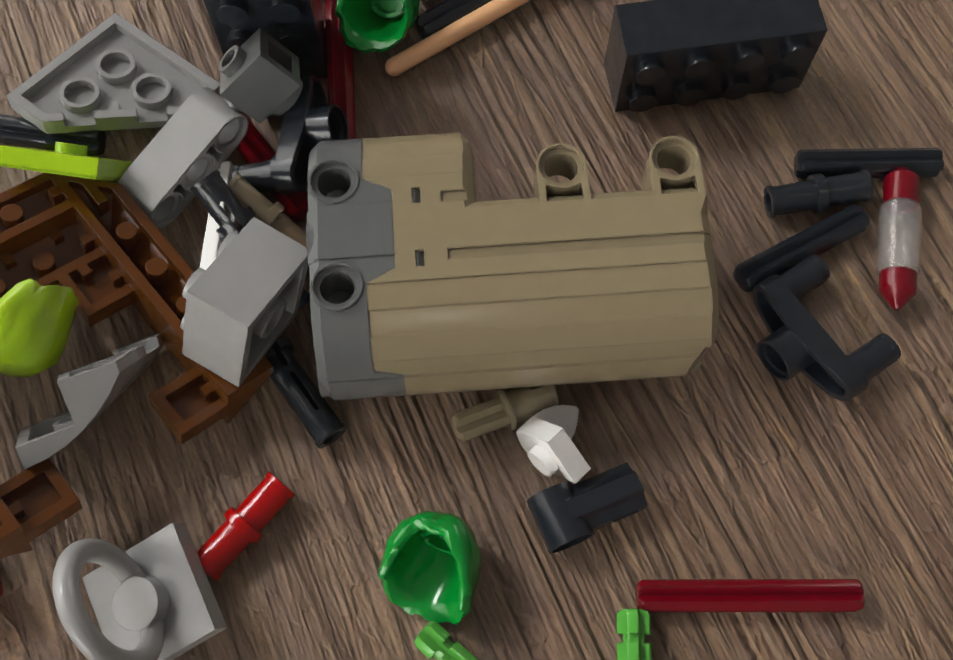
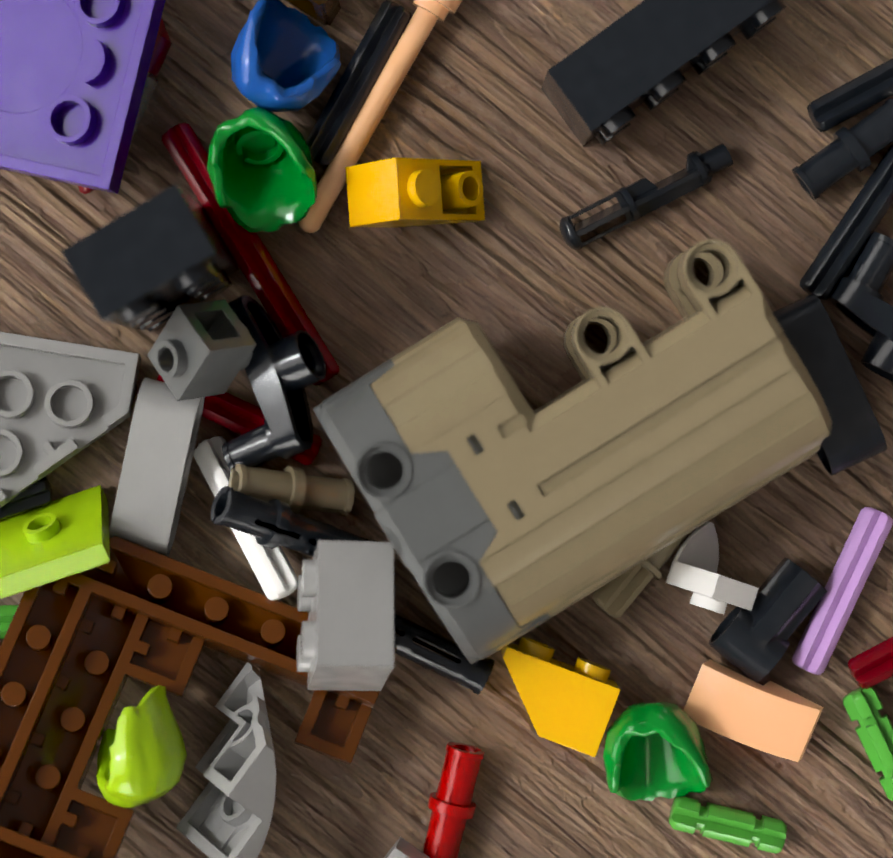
camera: 30 degrees left, 20 degrees up
(380, 480) = (562, 700): none -> yellow slope
(477, 73) = (414, 192): none -> yellow slope
(535, 577) = (752, 713): none -> light nougat slope
(635, 155) = (645, 196): none -> black piece
(659, 518) = (842, 590): none -> lavender axle
(724, 375) = (854, 428): none -> black beam

